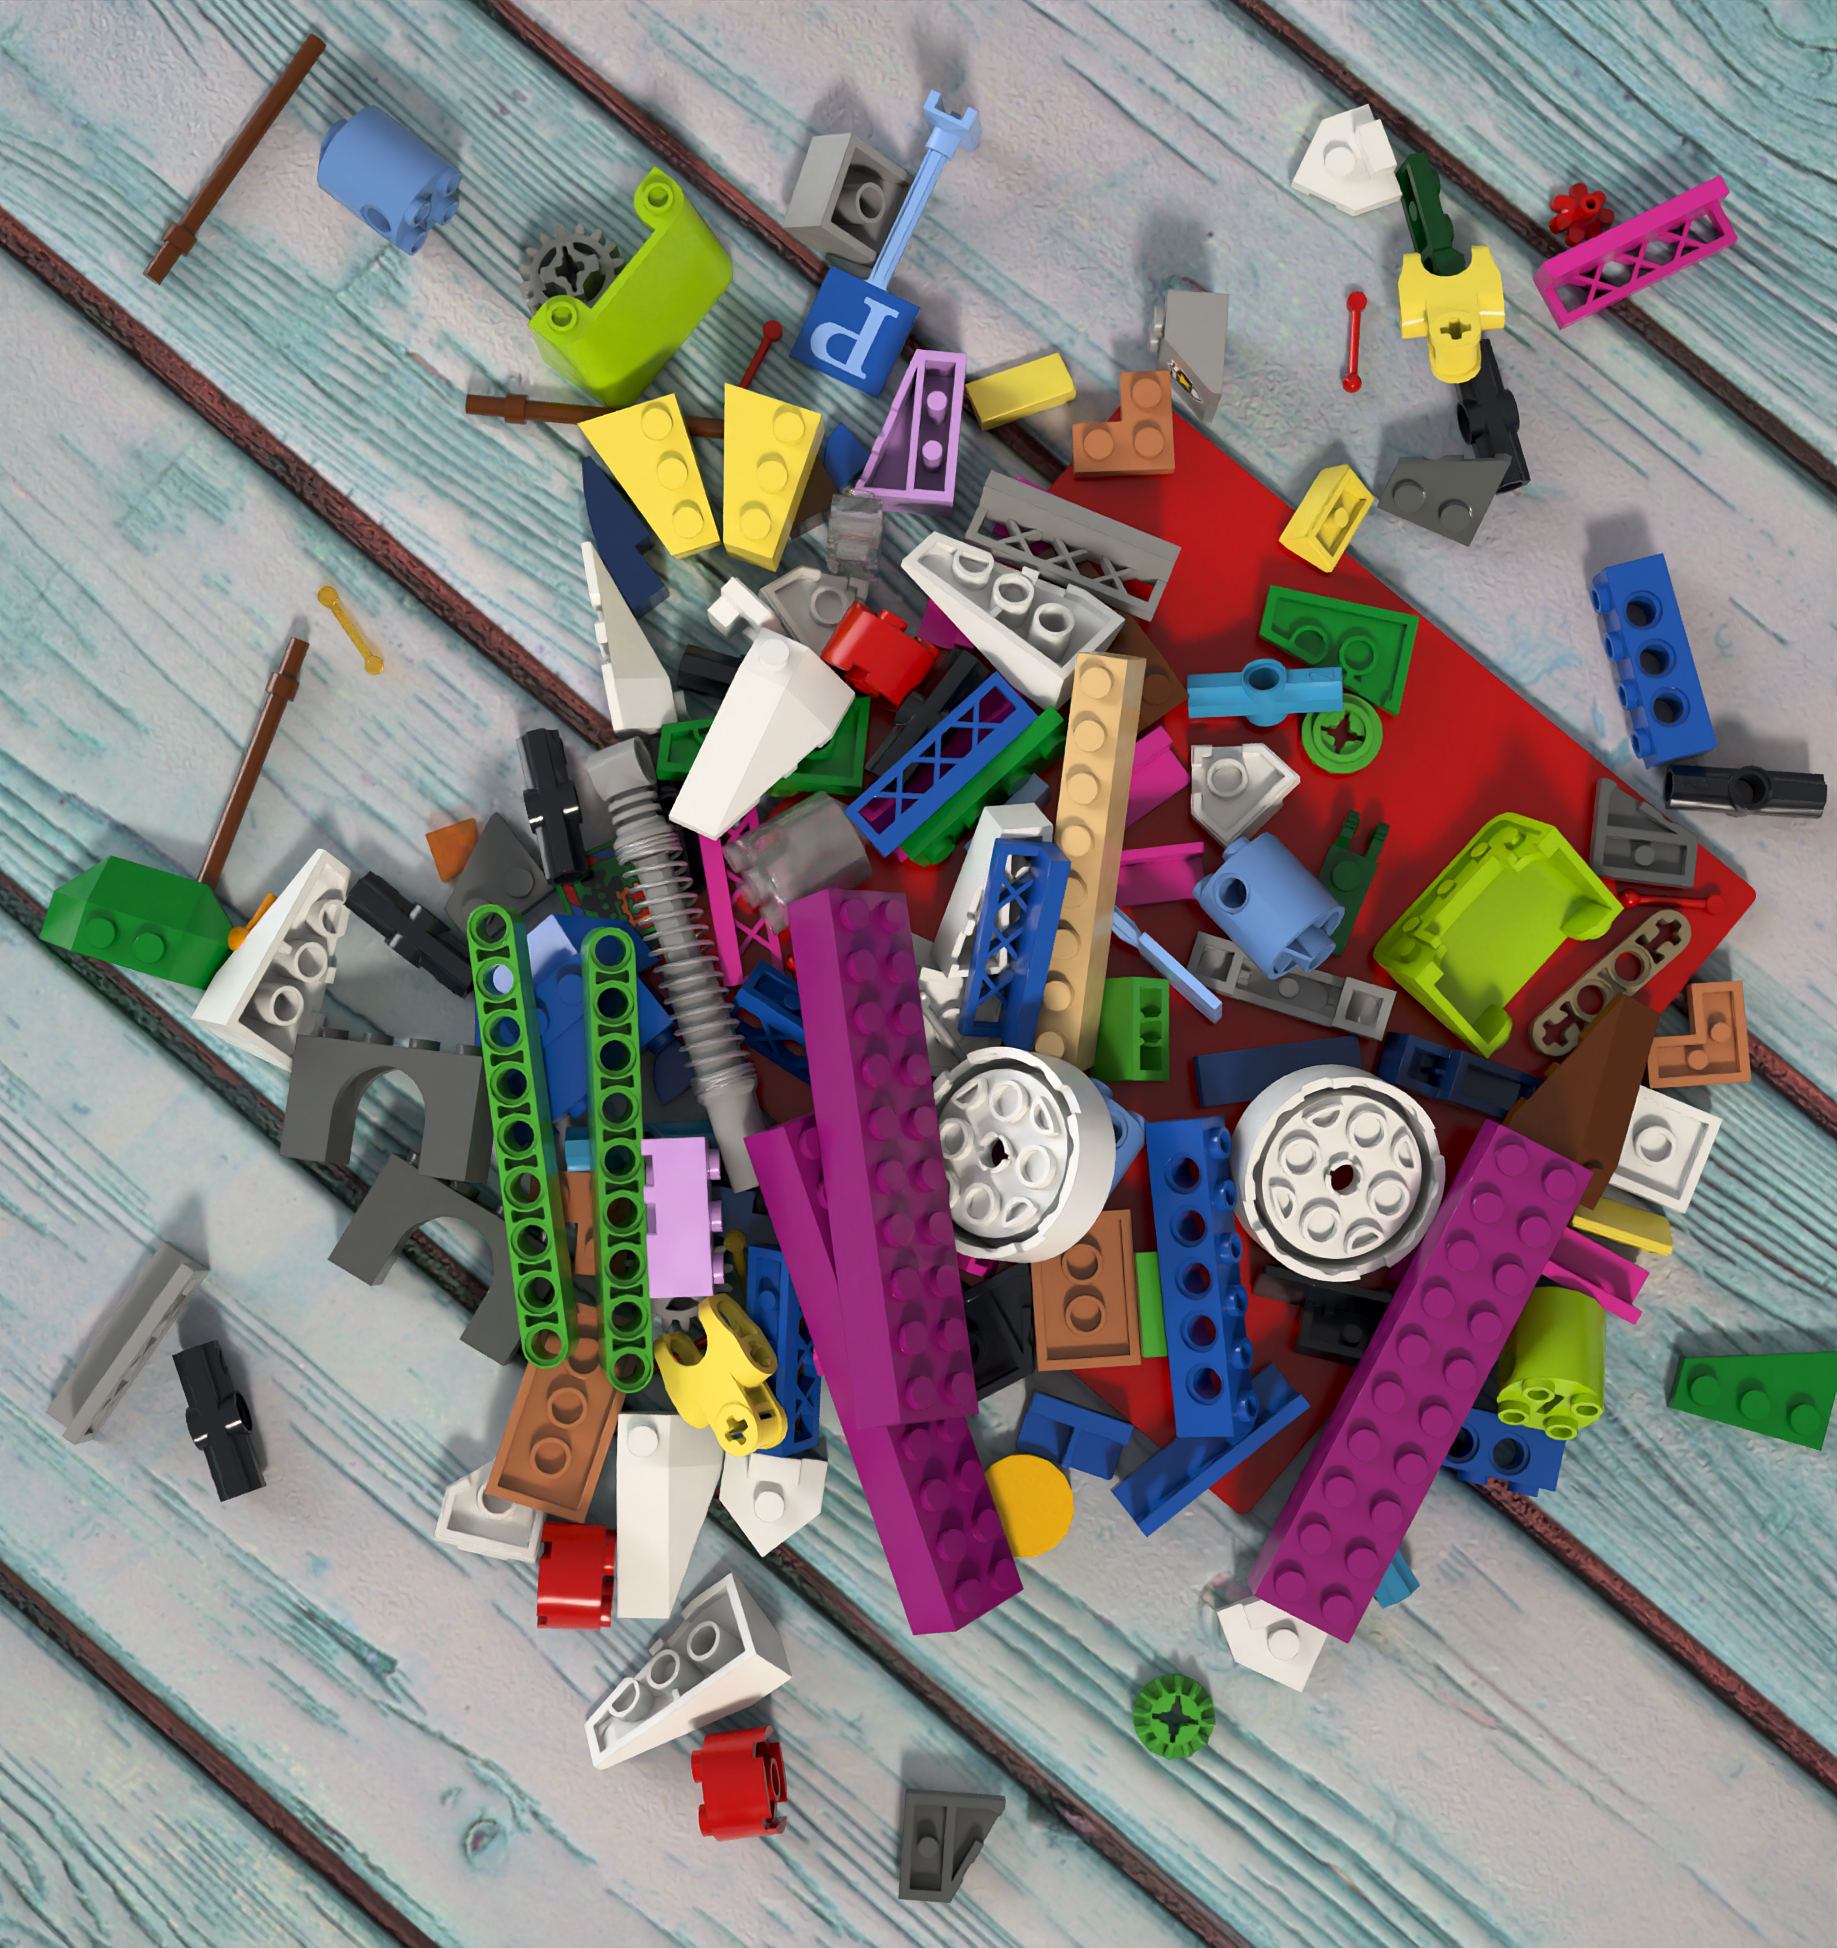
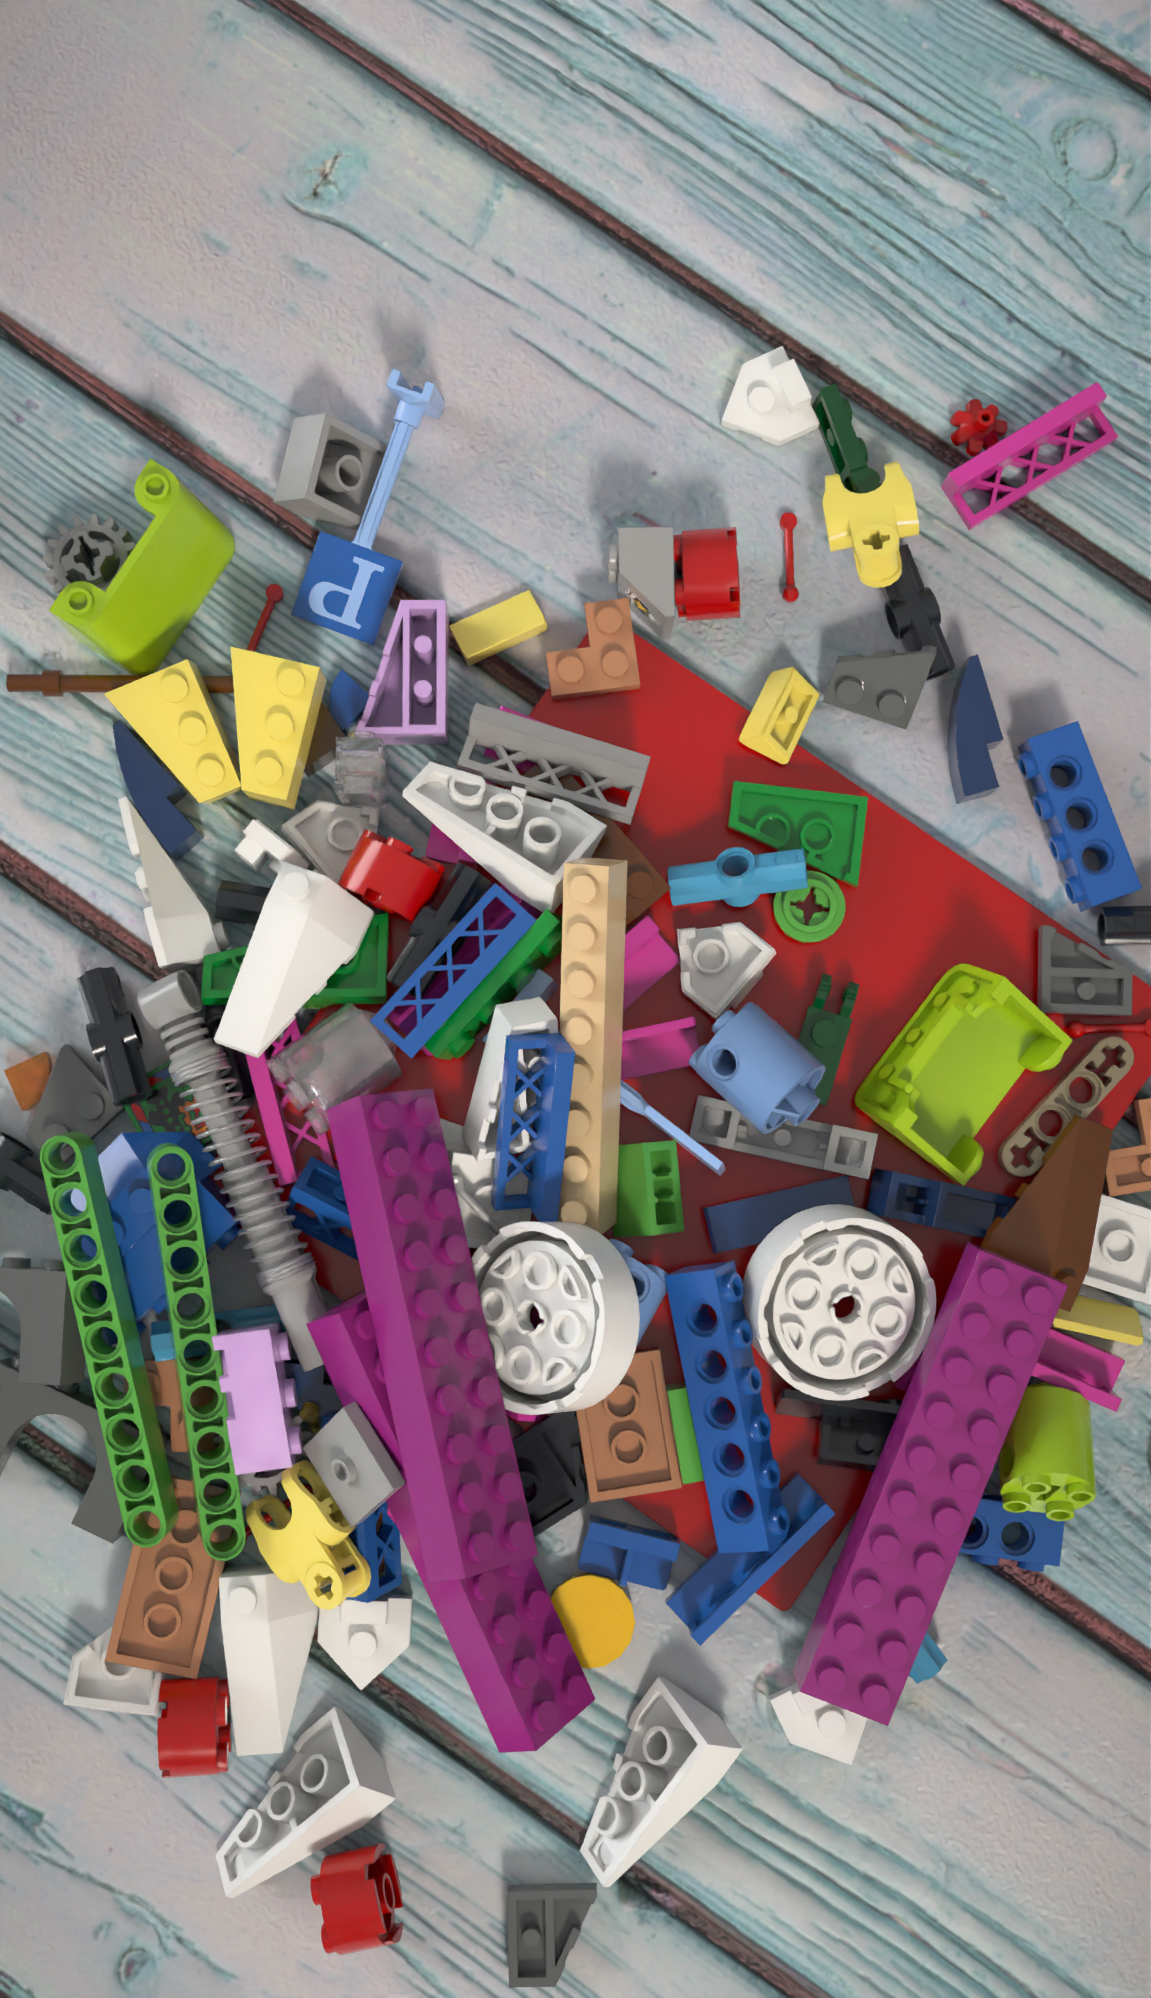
camera: 10 degrees left, 0 degrees up
(670, 1074) = (238, 1268): blue tile -> none
(782, 1298) = (354, 1464): none -> light grey plate
(1094, 1676) = (666, 1768): none -> white wedge
(1158, 1697) = (756, 1812): bright green gear -> none
(1264, 354) = (709, 574): none -> red brick
(1542, 558) = (971, 733): none -> dark blue slope

